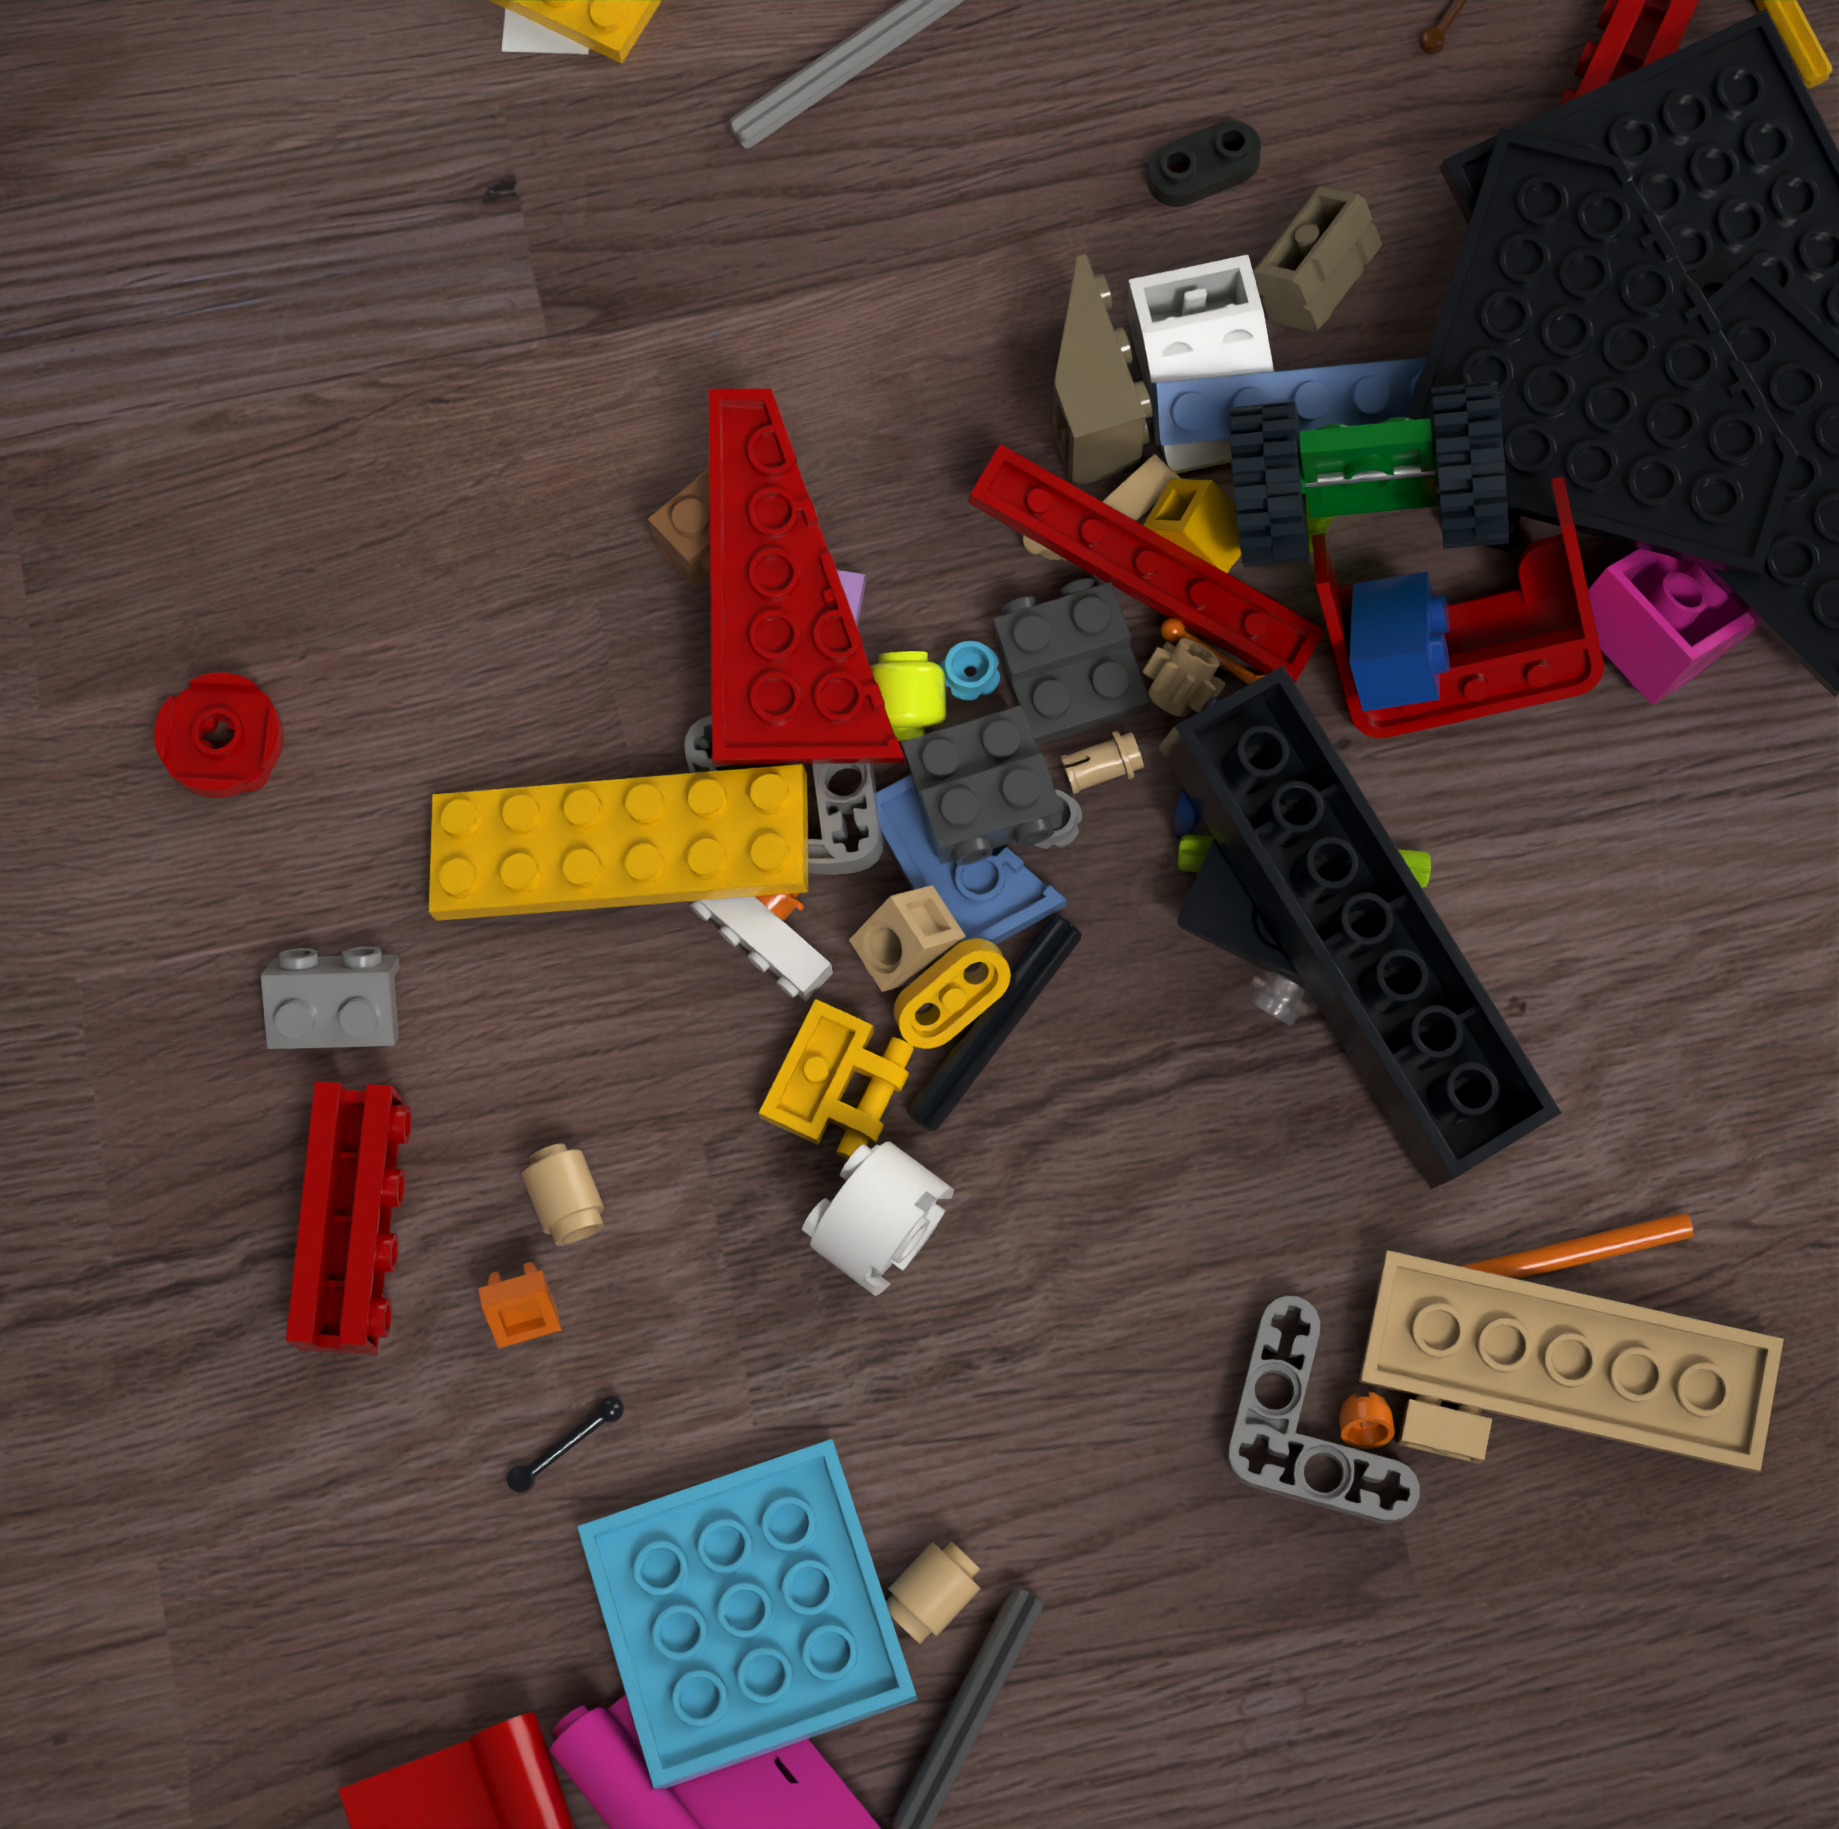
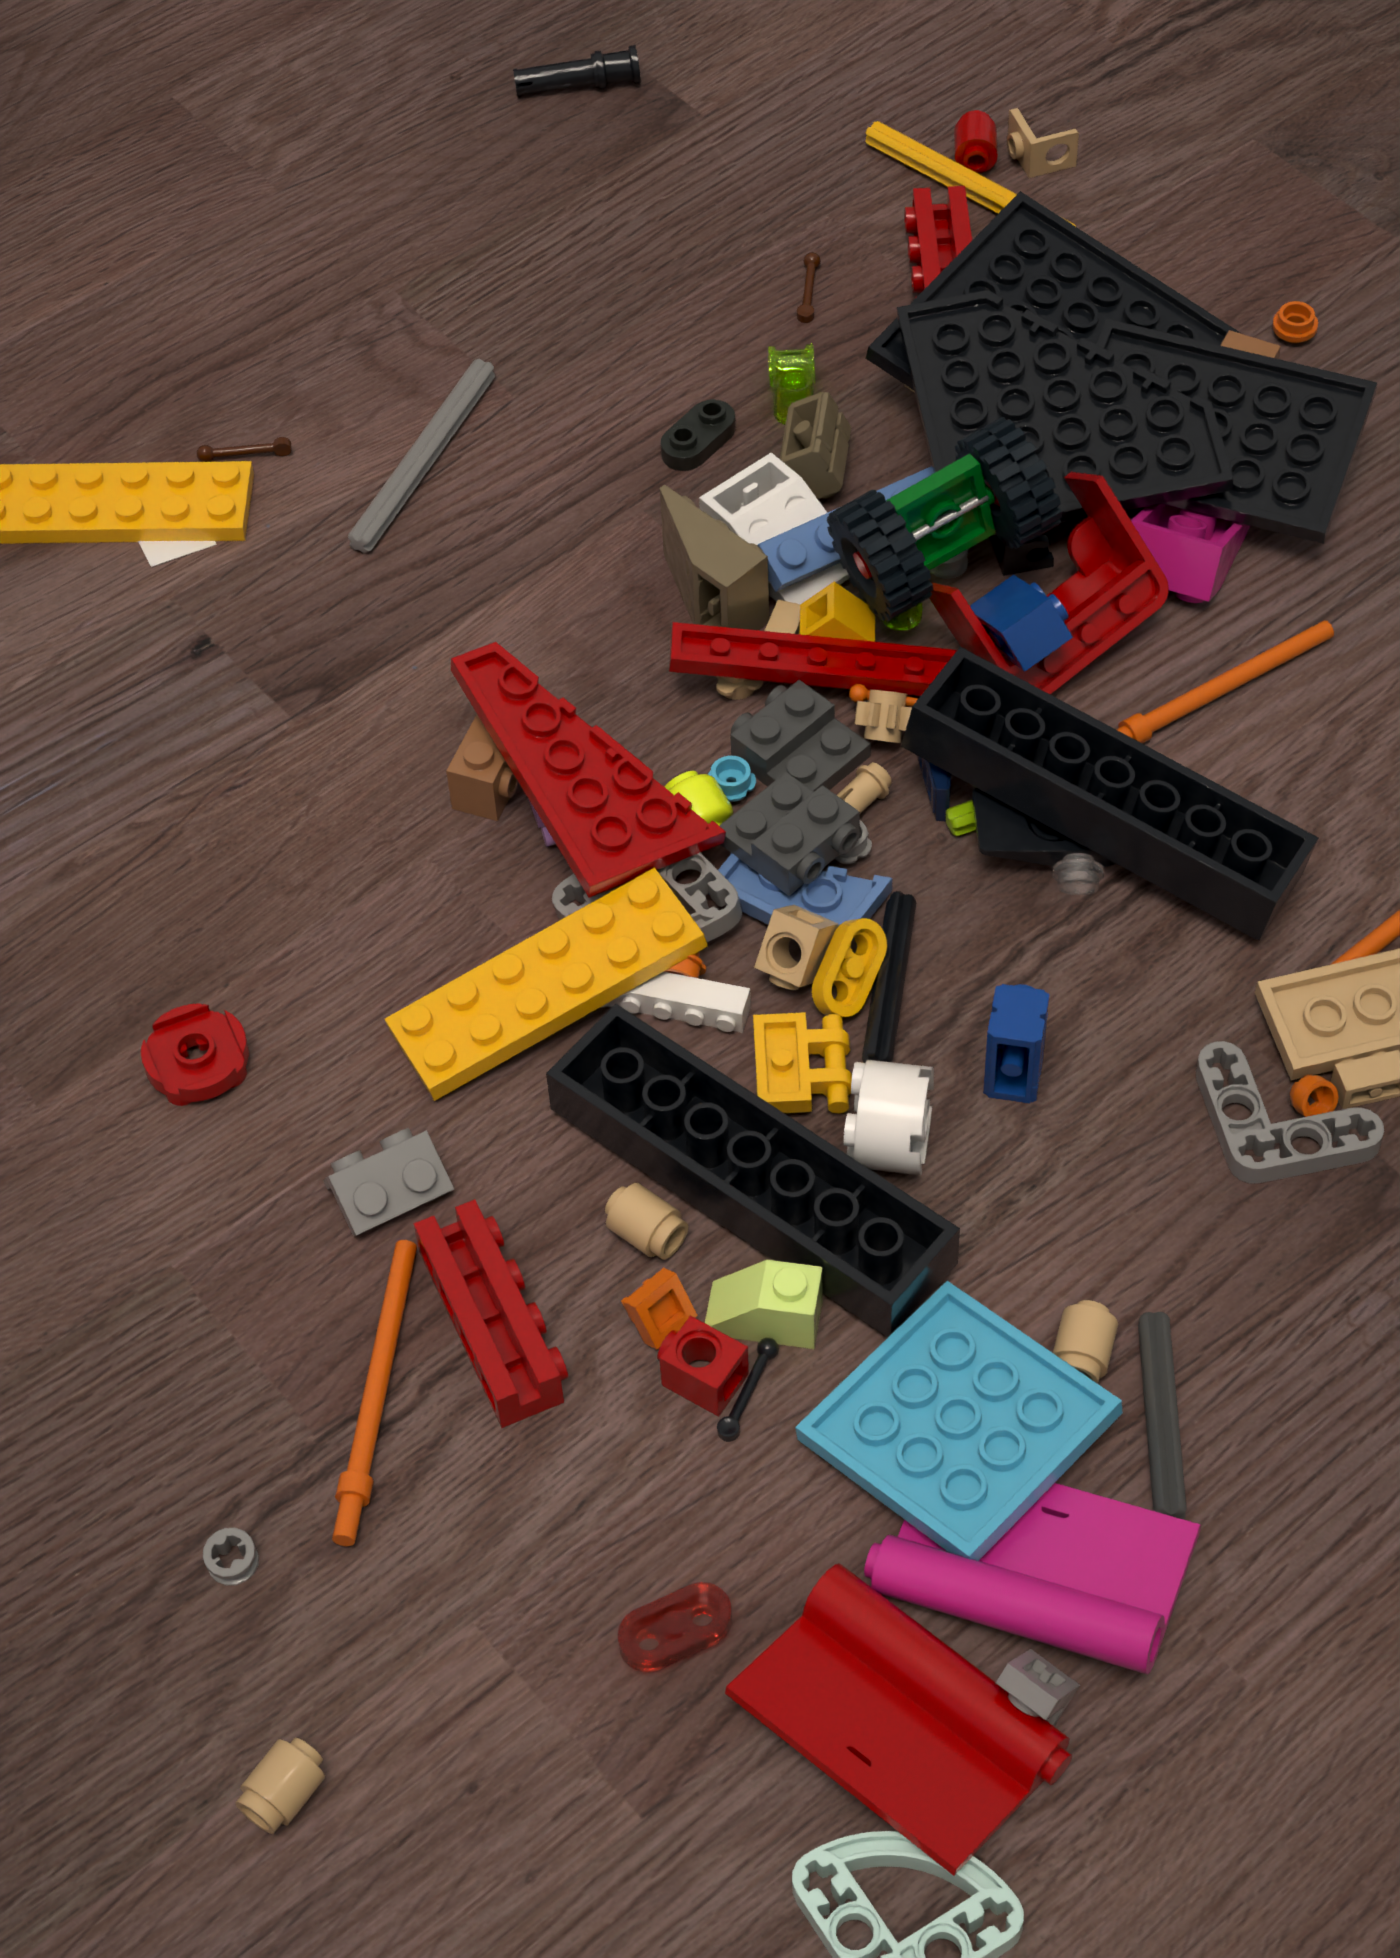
camera: 30 degrees left, 20 degrees down
(115, 1345) = (356, 1484): none -> orange bar
(338, 1683) = (671, 1625): none -> clear red plate
(546, 1420) = (709, 1385): none -> red brick
(632, 1363) = (768, 1302): none -> yellowish green slope
(701, 1198) = (753, 1169): none -> black brick
(1068, 1192) = (1016, 1043): none -> blue brick
(1354, 136) = (790, 377): none -> clear neon green piece
(1467, 834) = (1142, 726): none -> orange bar

